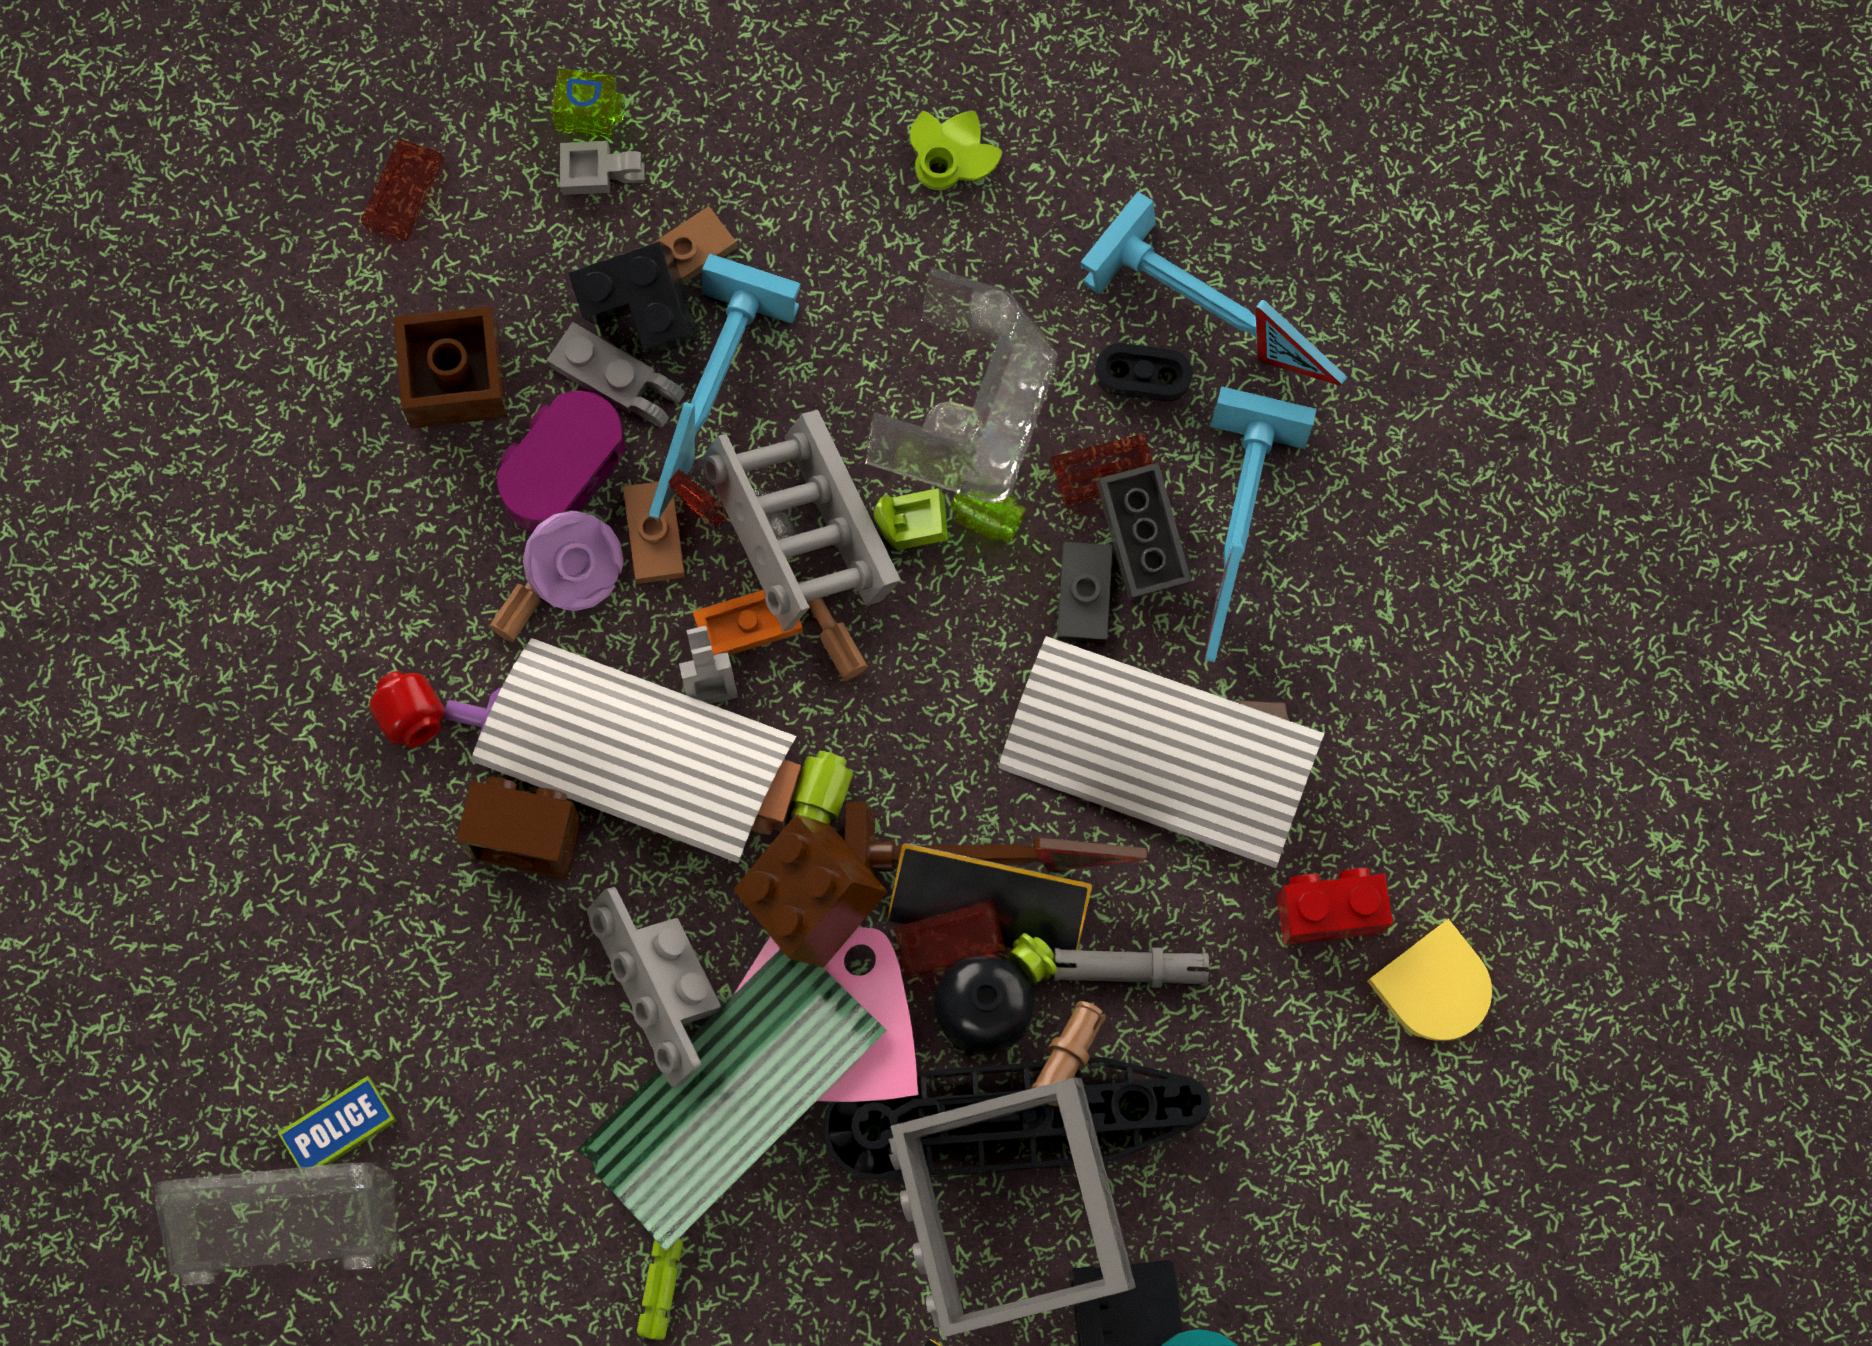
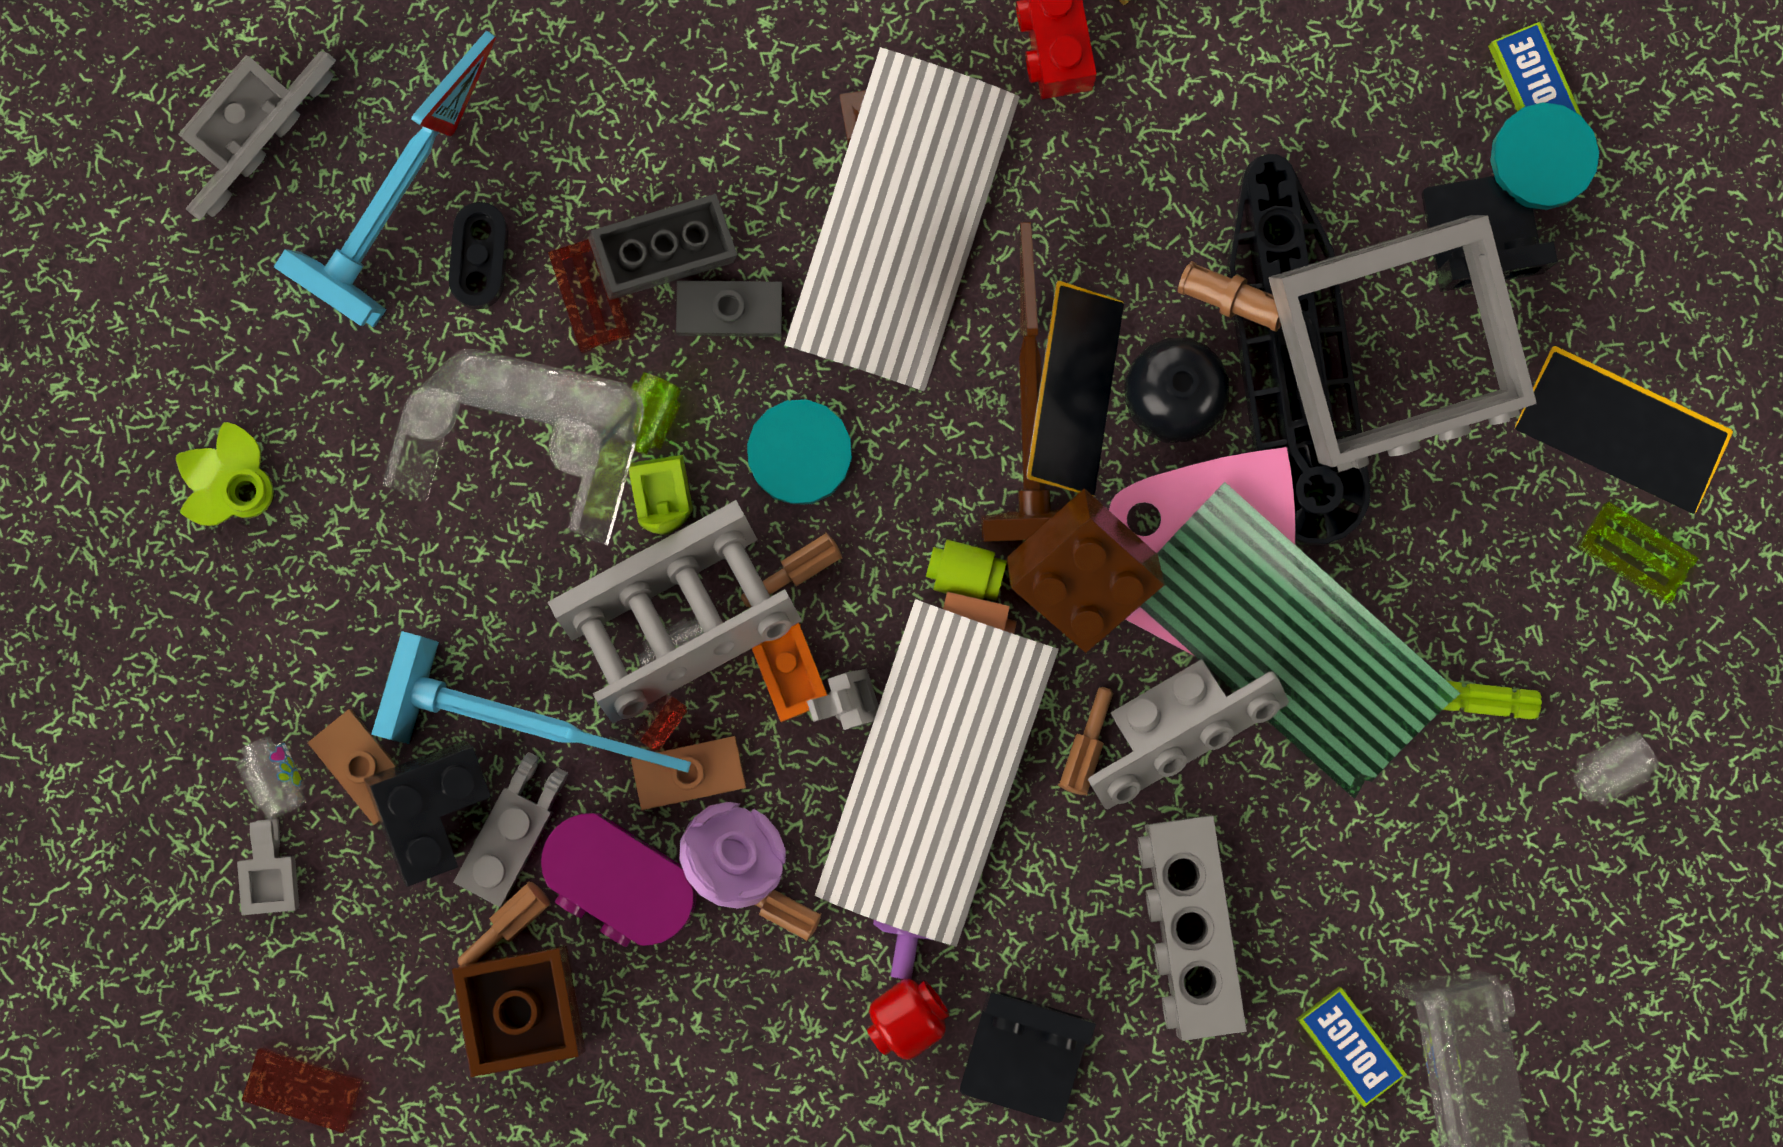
camera: 90 degrees left, 10 degrees up
(363, 816) = (1025, 1056): none -> black bracket
(519, 828) = (1036, 883): reddish brown brick -> none
(533, 368) = (508, 921): none -> medium nougat axle
(545, 987) = (1221, 1007): none -> light grey brick
(586, 103) = (190, 889): clear neon green brick -> none
(646, 894) = (1086, 747): none -> medium nougat axle
(679, 173) = (271, 777): none -> clear brick
(945, 647) = (799, 452): none -> teal tile
(946, 938) = (1115, 428): clear red tile -> none
(1033, 958) = (1130, 340): lime plate -> none
(1132, 966) = (1129, 241): light grey pin -> none
(1262, 423) = (531, 125): medium azure piece -> none
(1277, 175) = (242, 120): none -> light grey bracket

